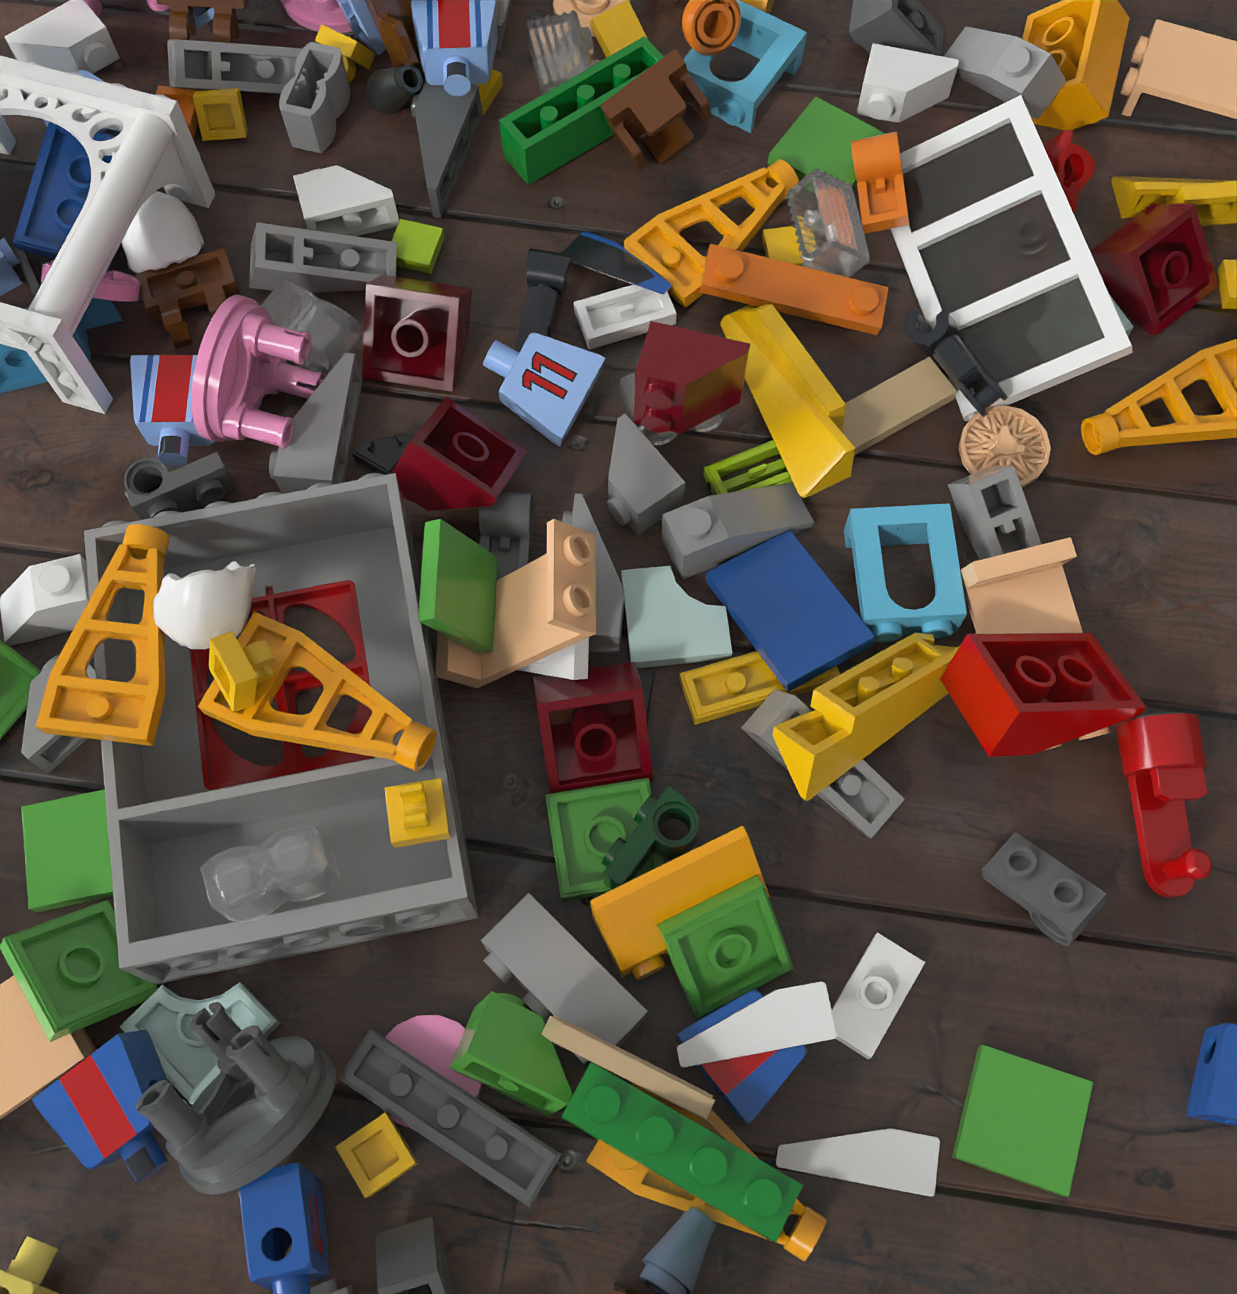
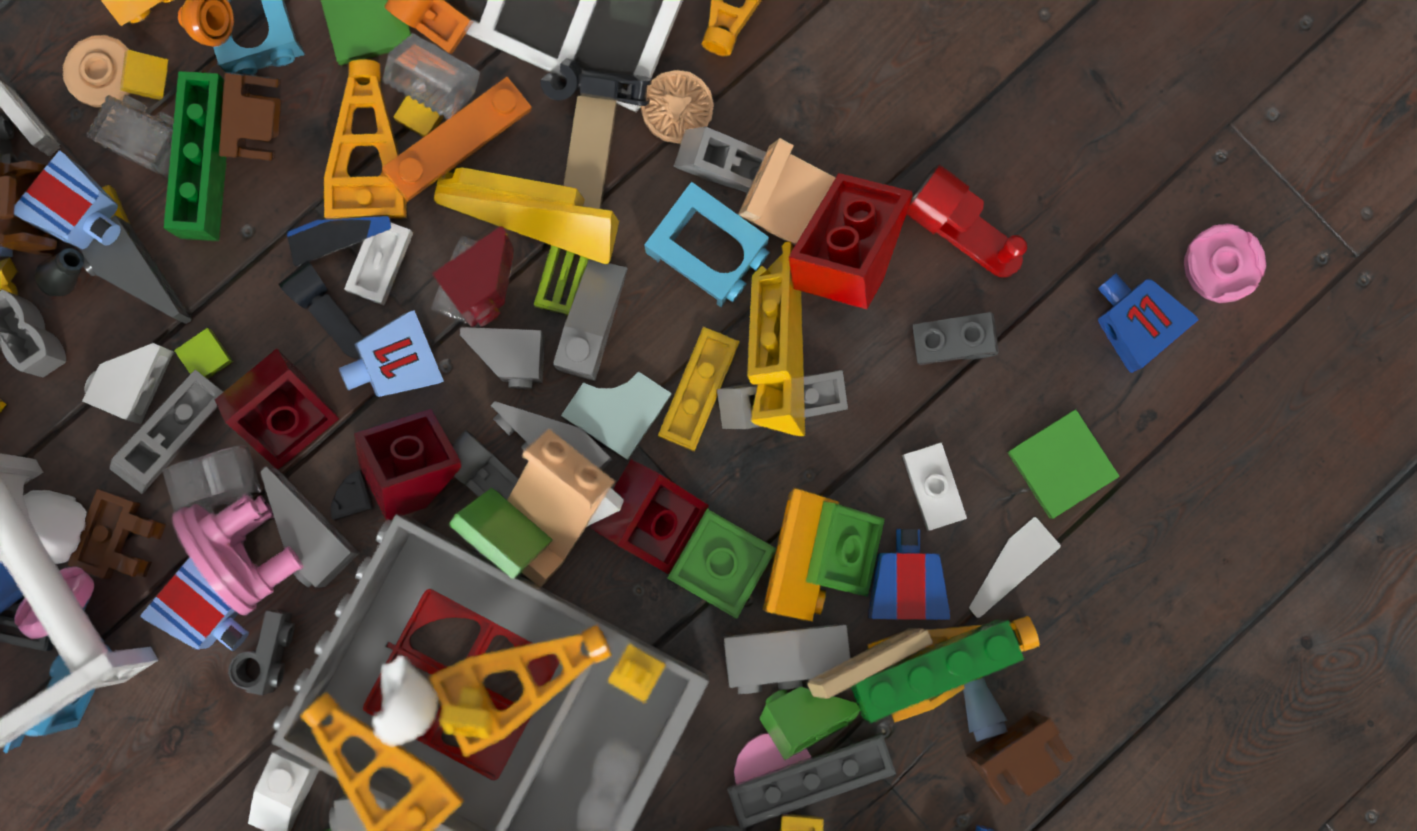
camera: 55 degrees left, 15 degrees up
(628, 857) = (749, 563): dark green plate -> none
(772, 1023) = (908, 561): white sticker -> none
(789, 610) = (673, 335): blue tile -> none

